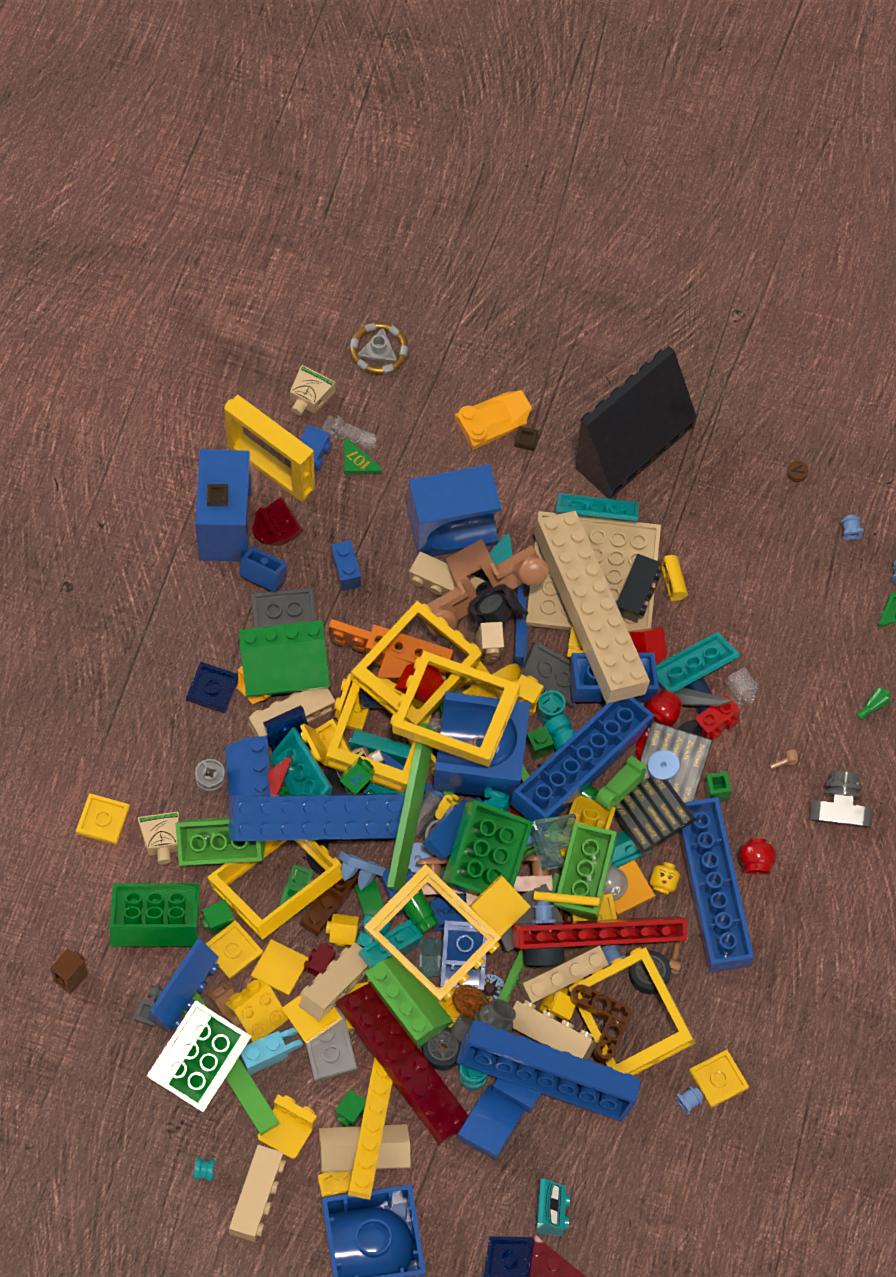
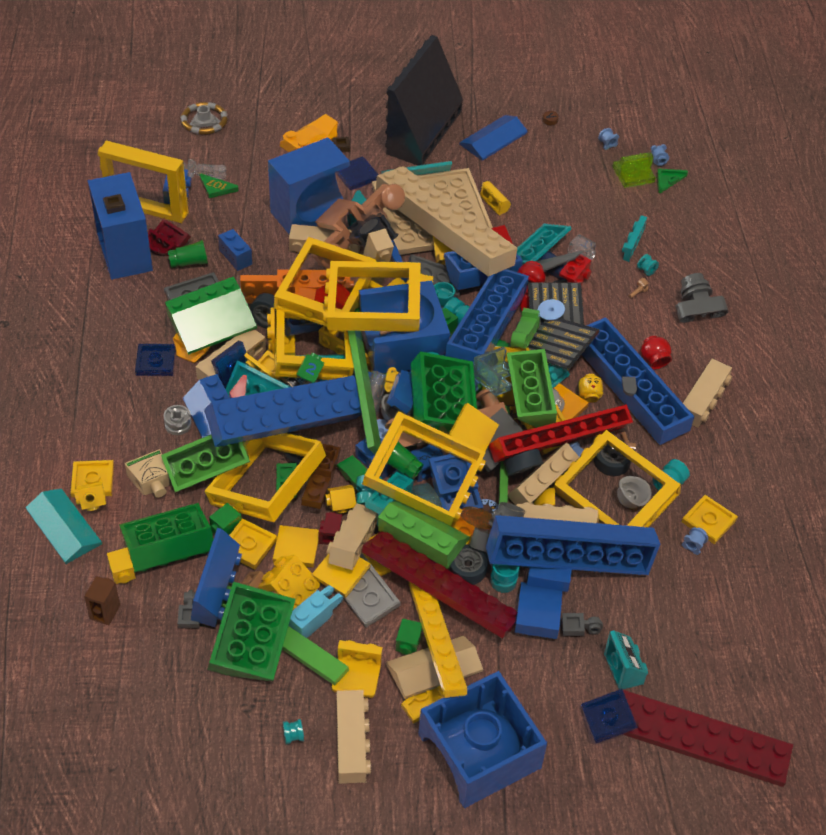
camera: 20 degrees left, 15 degrees down
(58, 865) = (63, 525): none -> teal slope
(94, 843) = (91, 496): none -> yellow brick
(99, 935) = (121, 566): none -> yellow brick
(263, 569) = (168, 267): blue brick -> none
(296, 557) = (188, 255): none -> green plant
(310, 391) = (163, 146): tan torso -> none
(345, 661) = (261, 307): none -> wheel
(367, 872) = (345, 444): medium blue tile -> none
(521, 1150) = (574, 624): none -> dark grey plate
(527, 489) = (357, 174): none -> clear blue tile
(543, 912) = (510, 425): medium blue brick -> none
(562, 1006) = (557, 496): yellow tile -> none
(565, 898) = (527, 408): yellow bar -> none
(613, 1020) = (602, 493): reddish brown beam -> none
(638, 588) = (472, 199): black brick -> none
(649, 1023) = (633, 492): none -> light grey helmet
(700, 896) = (629, 385): none -> dark grey piece
(700, 1017) = (676, 470): none -> teal wheel
(715, 480) = (494, 137): none -> blue slope
(718, 786) = (599, 311): green brick -> none
(789, 925) = (707, 389): none -> tan brick
(809, 732) = (647, 264): none -> teal wheel
(811, 688) = (634, 238): none -> teal plate
(861, 586) = (635, 170): none -> clear neon green bracket
(878, 699) = (687, 231): green cone -> none

